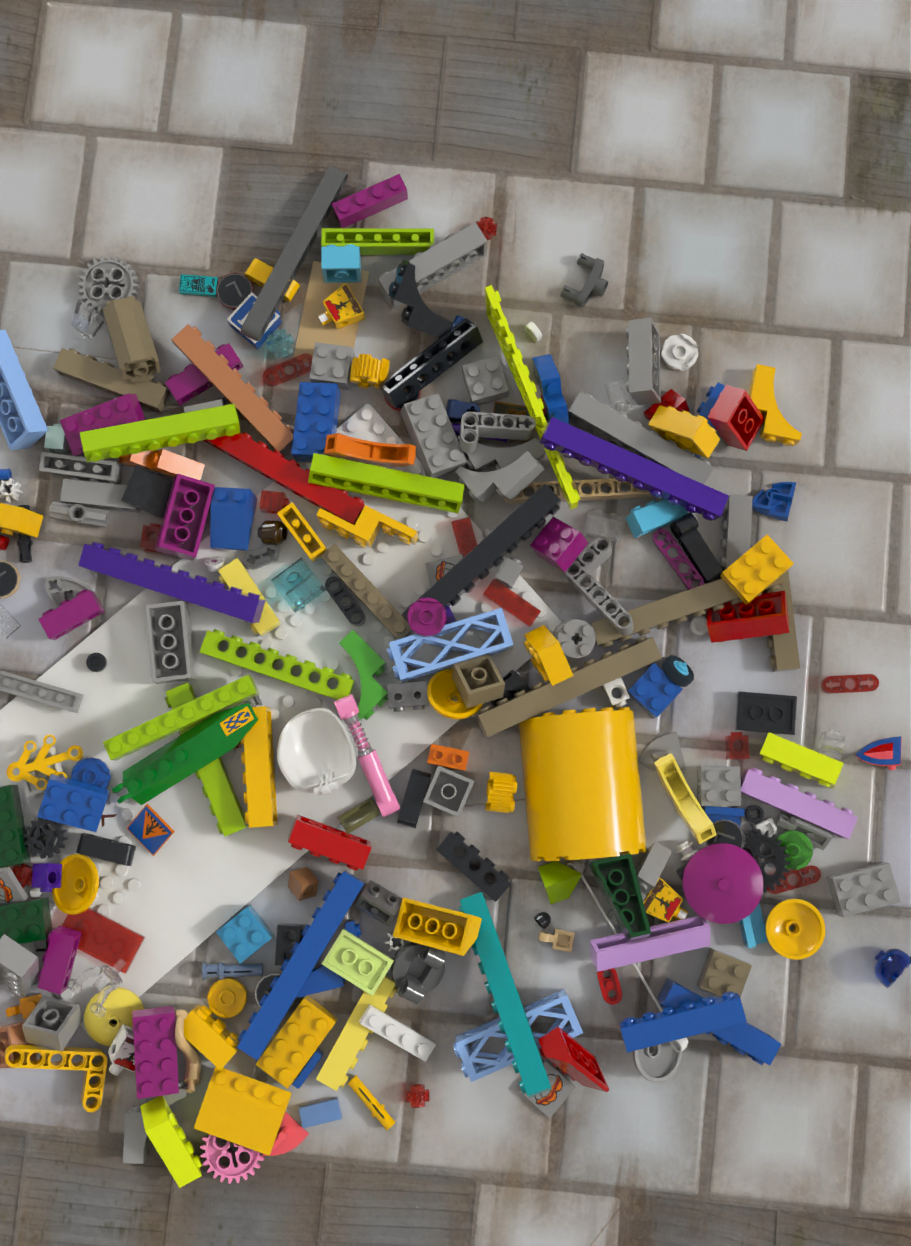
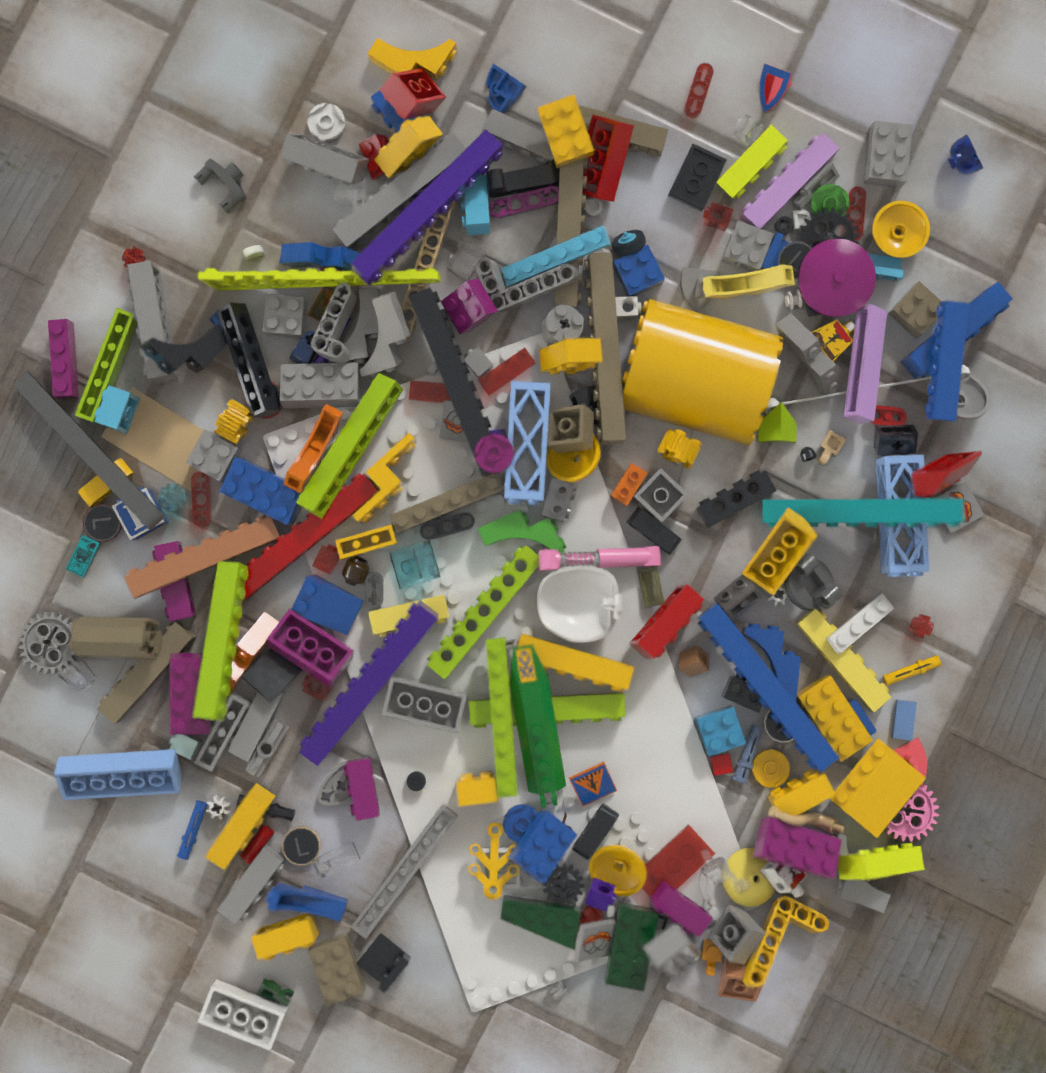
camera: 70 degrees left, 5 degrees up
(106, 719) = (477, 789): none -> yellow piece
(205, 405) = (207, 591): light grey tile -> none
(214, 564) = (365, 636): white tile -> none
(214, 948) = (721, 764): none -> red tile
(341, 308) = (160, 426): yellow torso -> none
(357, 962) = (784, 635): yellowish green plate -> none
(589, 1001) = (895, 440): none -> black brick
(622, 892) = (815, 370): dark green wedge -> none
(637, 607) = (556, 256): none -> medium azure plate

